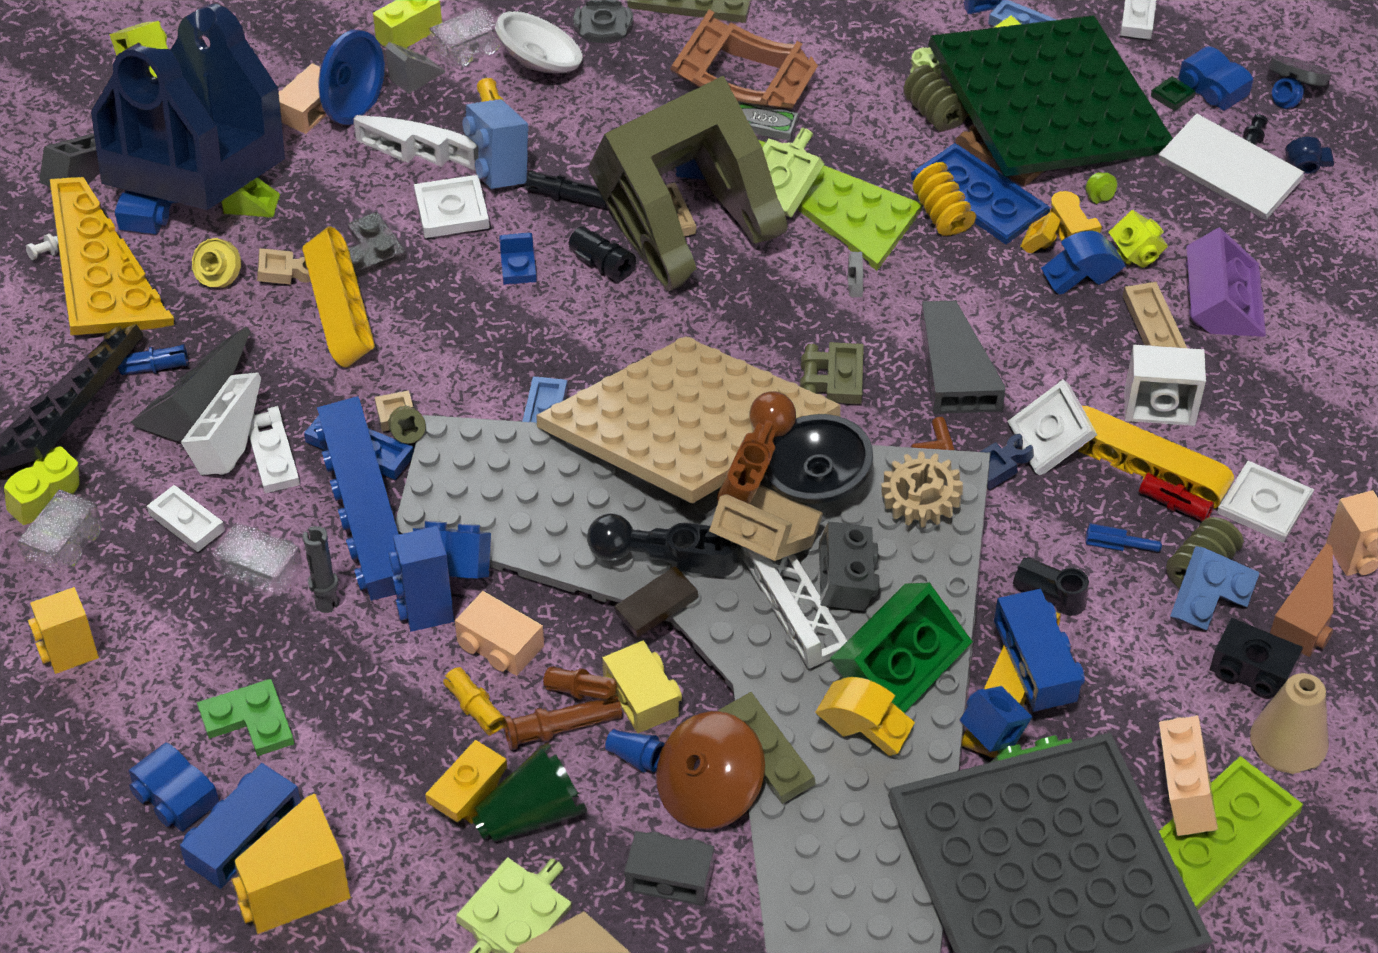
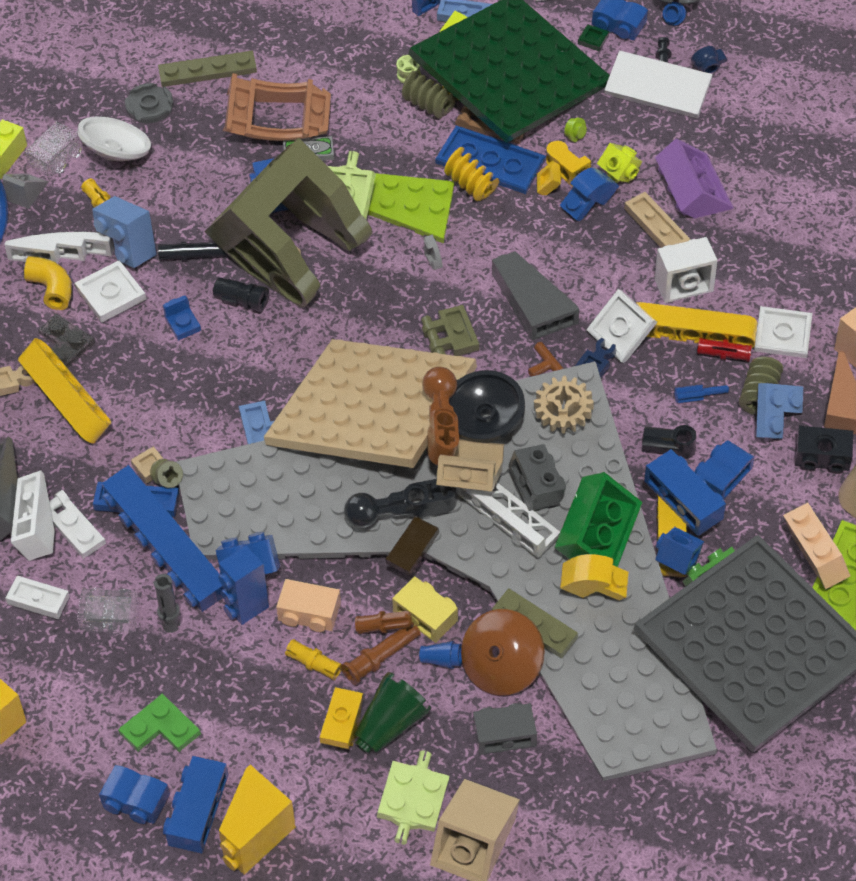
camera: 20 degrees left, 5 degrees up
(393, 171) = (53, 277): none -> yellow cylinder
(1109, 642) = (725, 467): none -> blue brick

